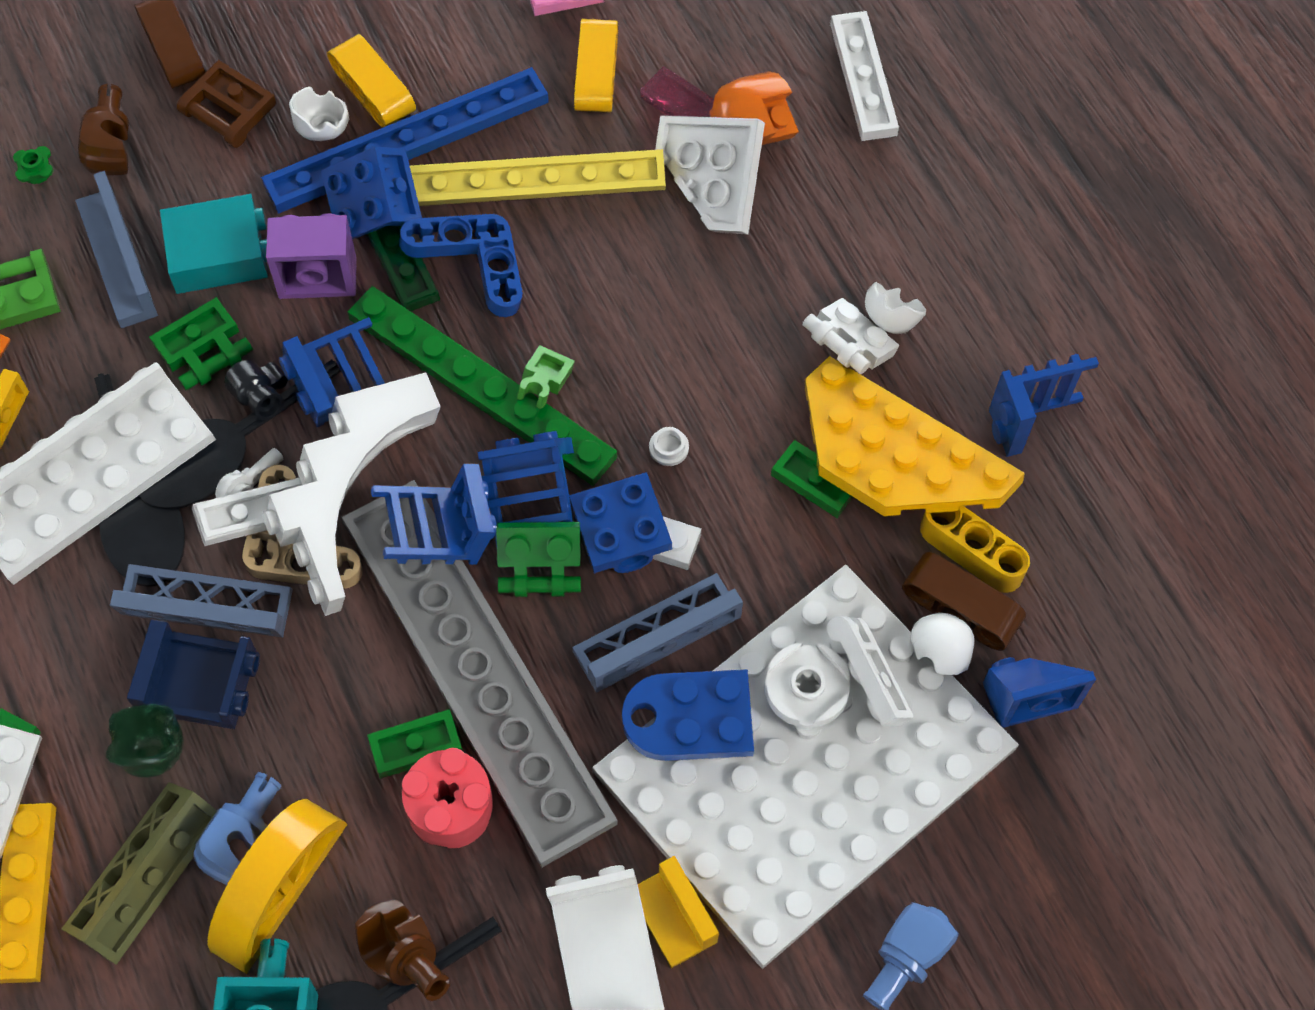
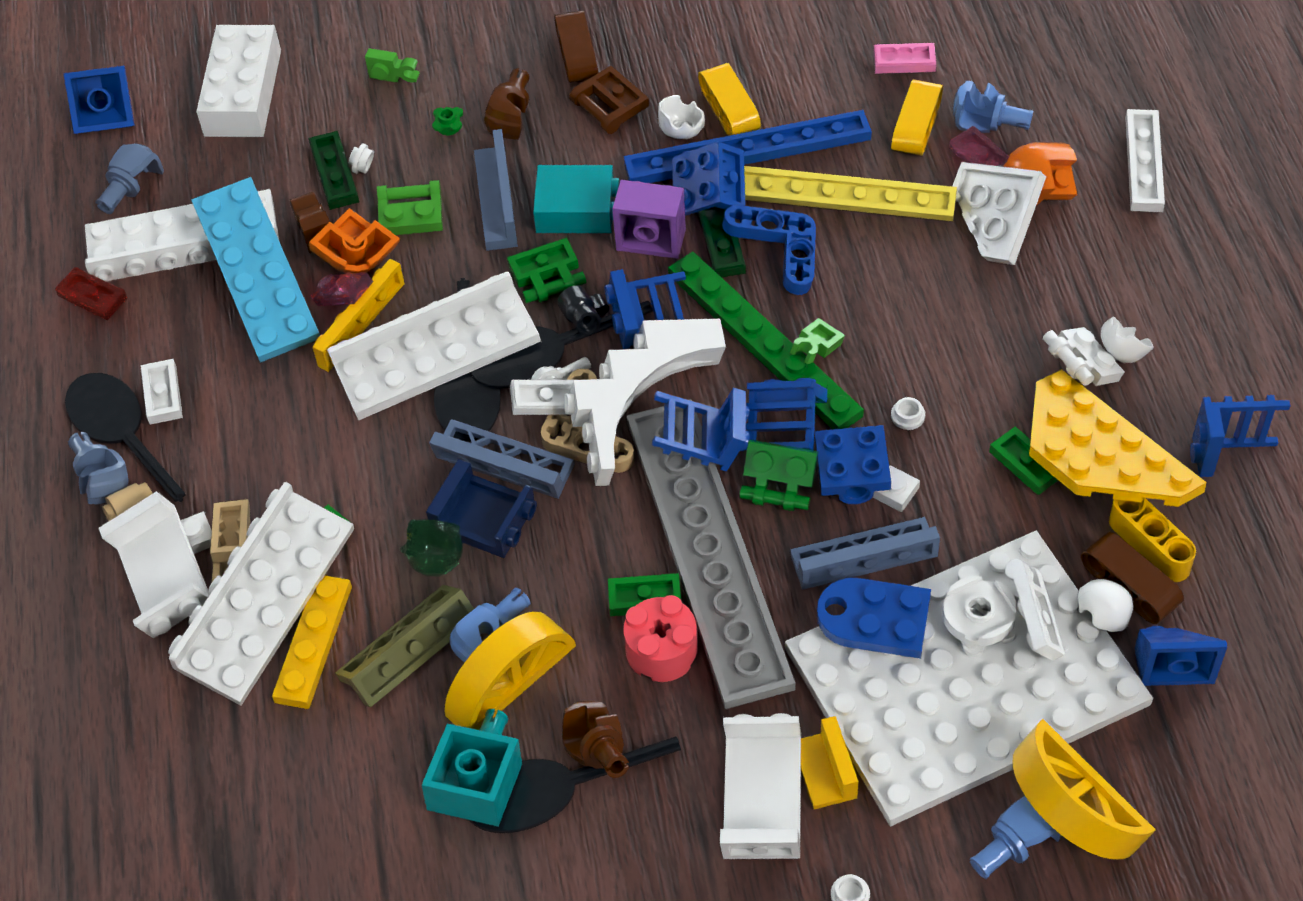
camera: 20 degrees right, 10 degrees down
(674, 43) = (986, 110): none -> medium blue piece
(963, 894) = (1076, 797): none -> yellow window

